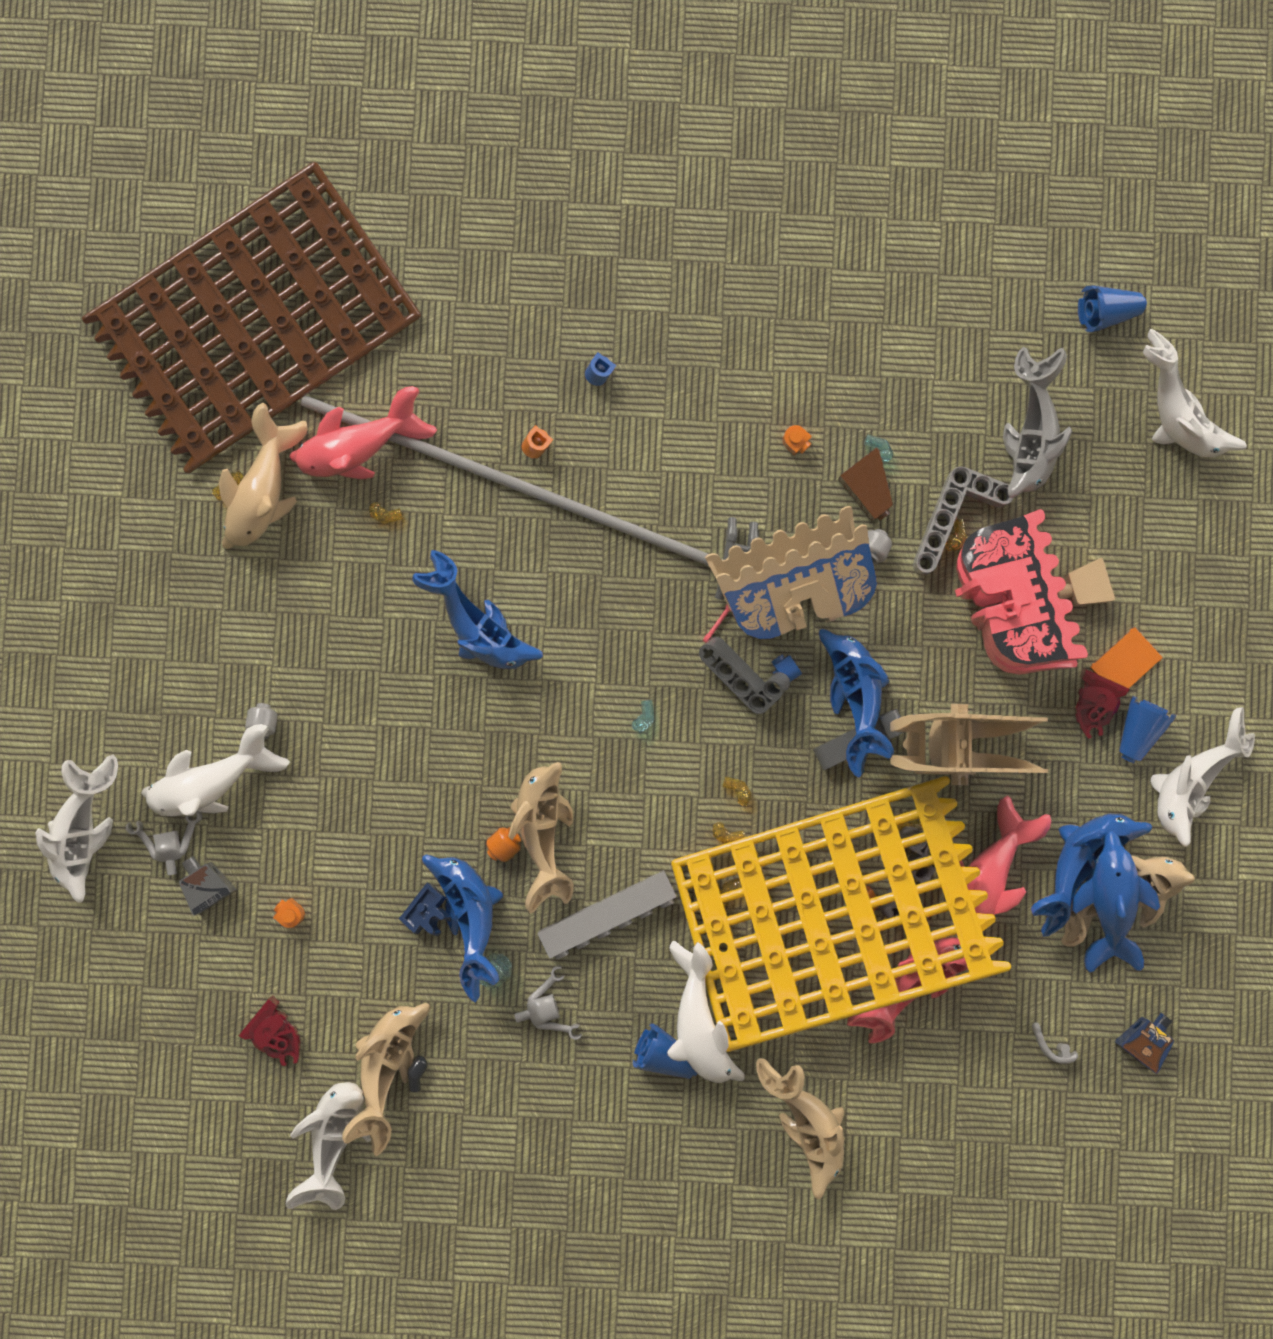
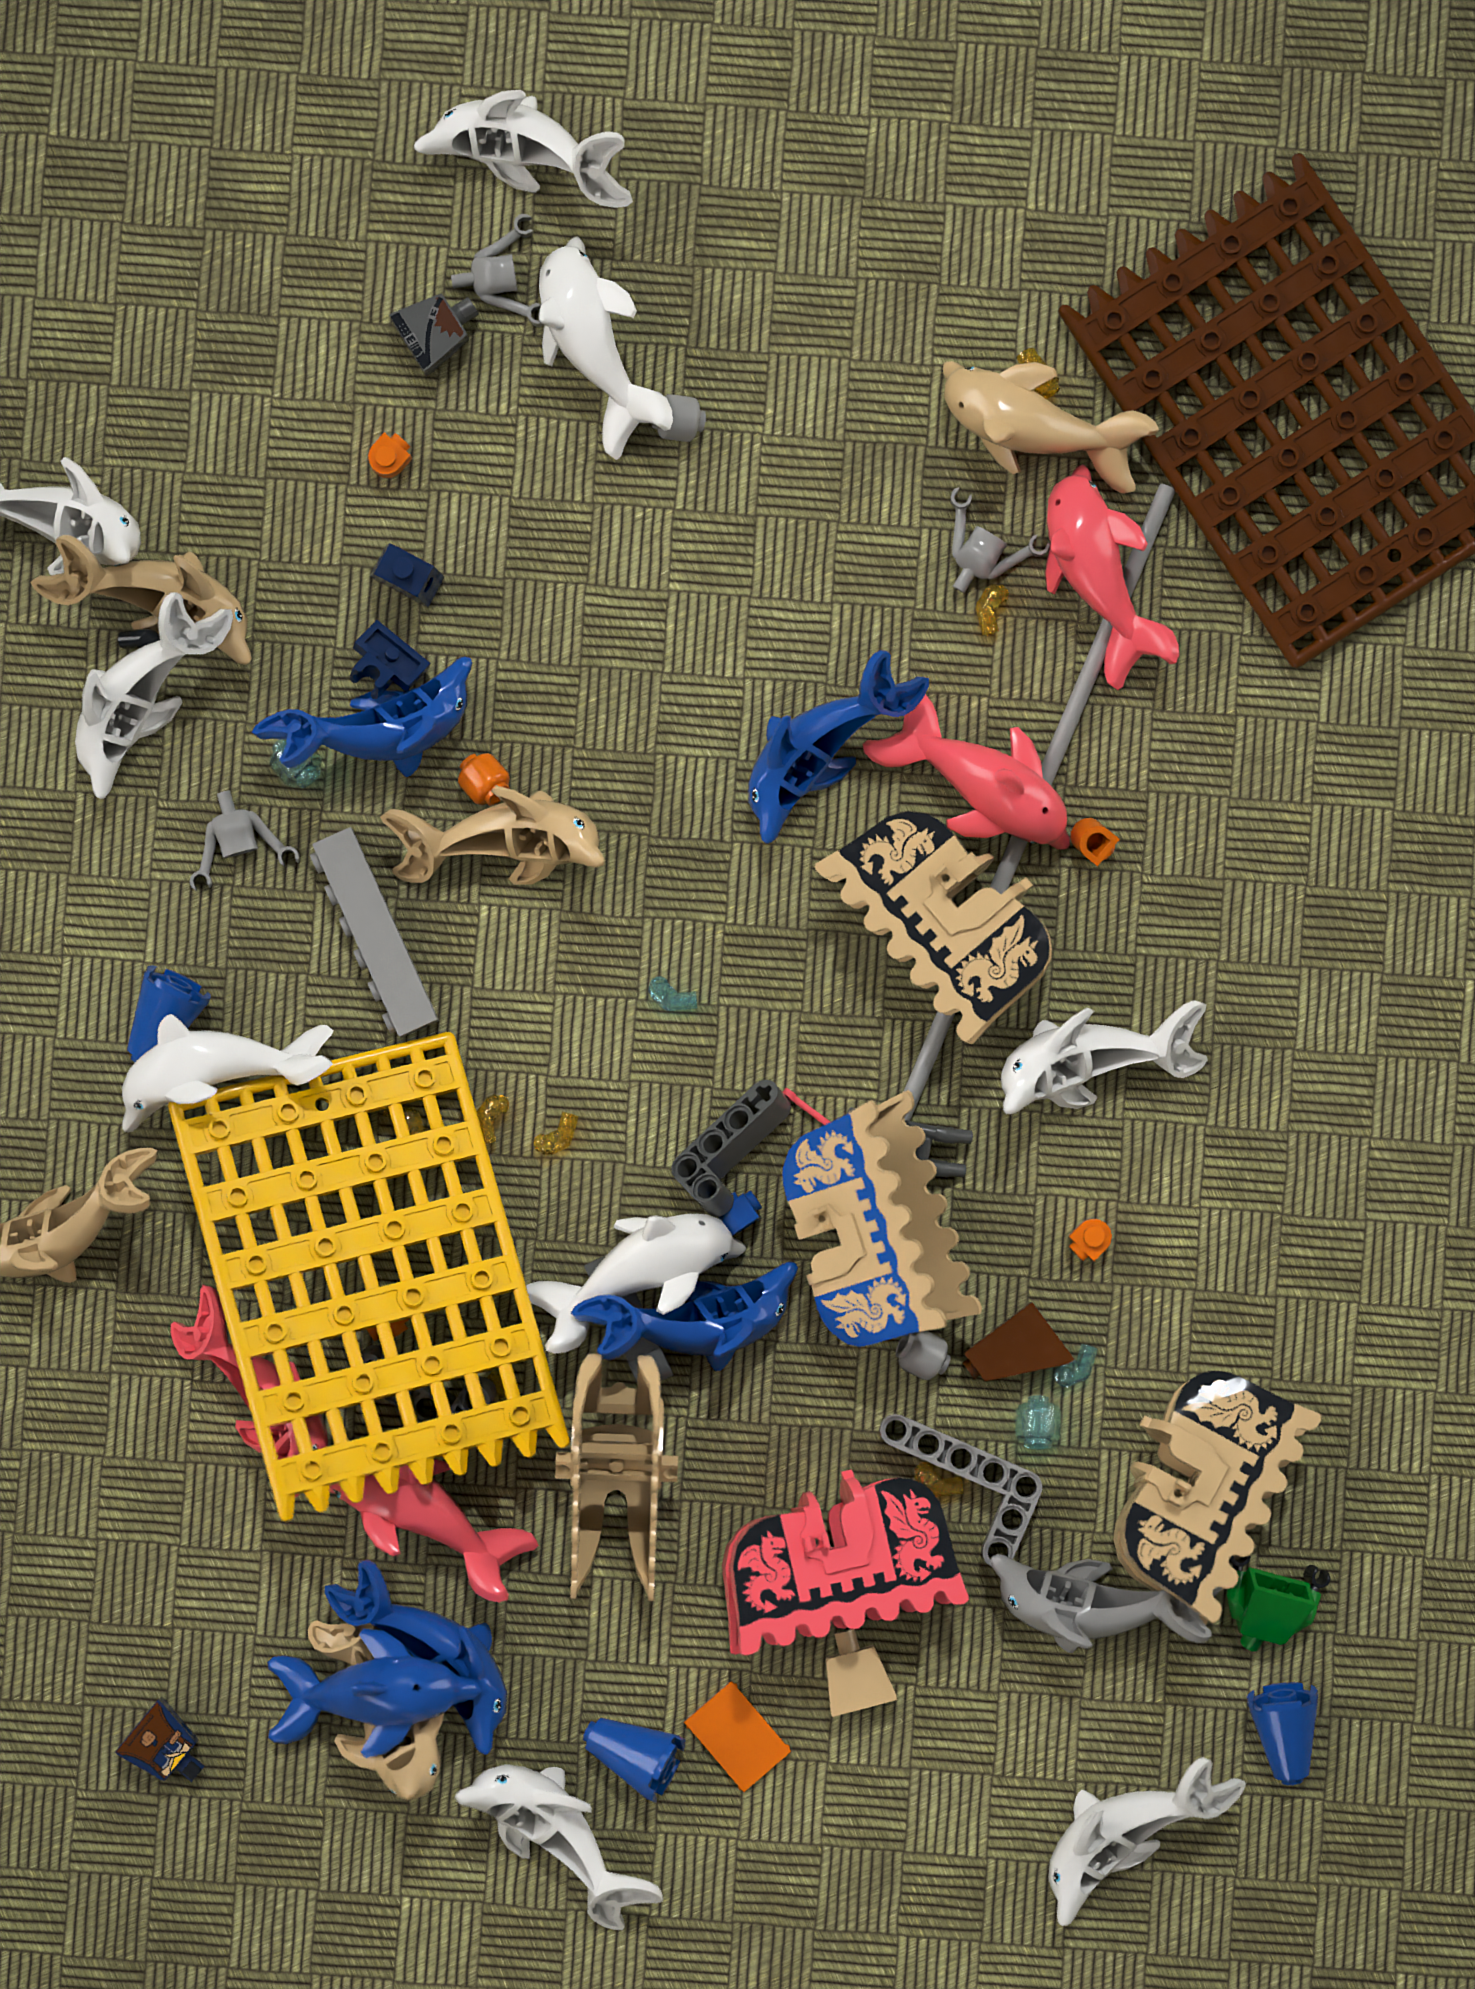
camera: 90 degrees right, 0 degrees up
(272, 1030) = (216, 430): dark red piece -> none
(346, 519) = (982, 550): none -> light grey piece
(368, 898) = (407, 574): none -> dark blue torso
(457, 1090) = (121, 701): none -> white animal
(502, 502) = (1000, 787): none -> coral animal
(599, 370) = (1204, 938): blue plate -> none
(613, 515) = (975, 952): none -> tan animal
(679, 457) = (1065, 1057): none -> white animal
(817, 721) = (654, 1255): none -> white animal
(917, 471) = (1038, 1423): none -> clear light blue head
(940, 341) = (1229, 1446): none -> tan animal
(1031, 317) = (1273, 1605): none -> green torso
(1064, 1055) = (141, 1617): light grey piece -> none
(1096, 699) = (683, 1685): dark red piece -> none

